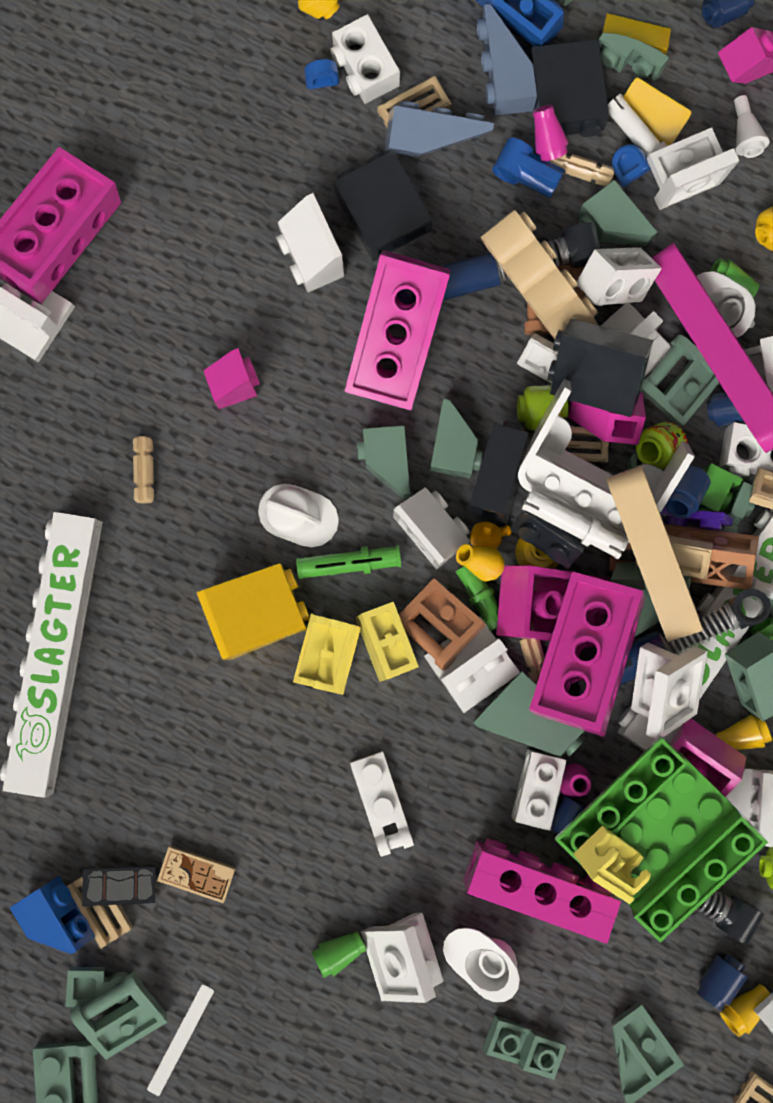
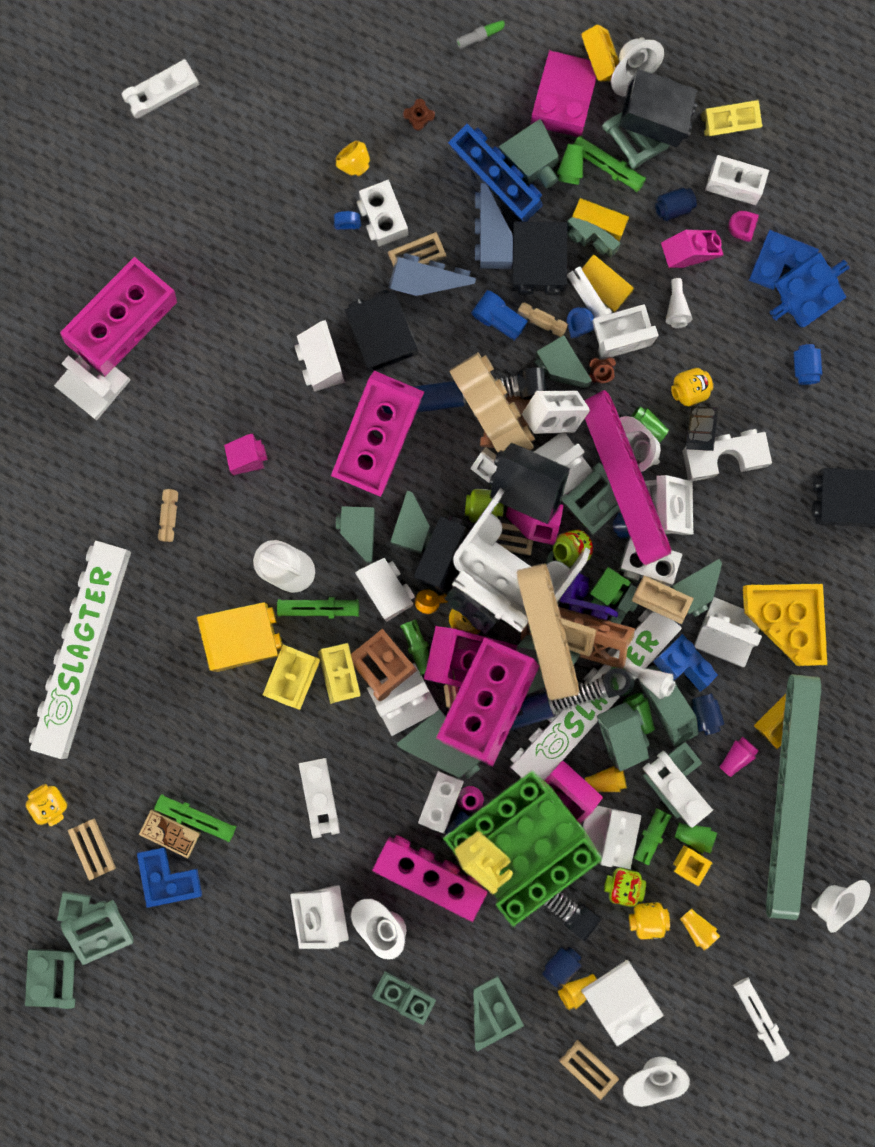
camera: 10 degrees right, 0 degrees up
(33, 859) = (46, 805): none -> yellow head
(53, 918) = (56, 851): blue slope -> none
(118, 886) = (109, 834): tile -> none
(180, 1040) = (141, 959): white sticker -> none
(197, 944) = (160, 885): none -> blue plate
(226, 850) = (195, 818): none -> bright green pin
(338, 953) = (270, 907): bright green cone -> none
(483, 562) = (420, 621): yellow cone -> none
(549, 135) = (517, 295): dark pink cone -> none
(667, 687) = (546, 735): white bracket -> none
(673, 222) = (605, 375): none -> copper plate
(688, 493) = (583, 587): dark blue brick -> none

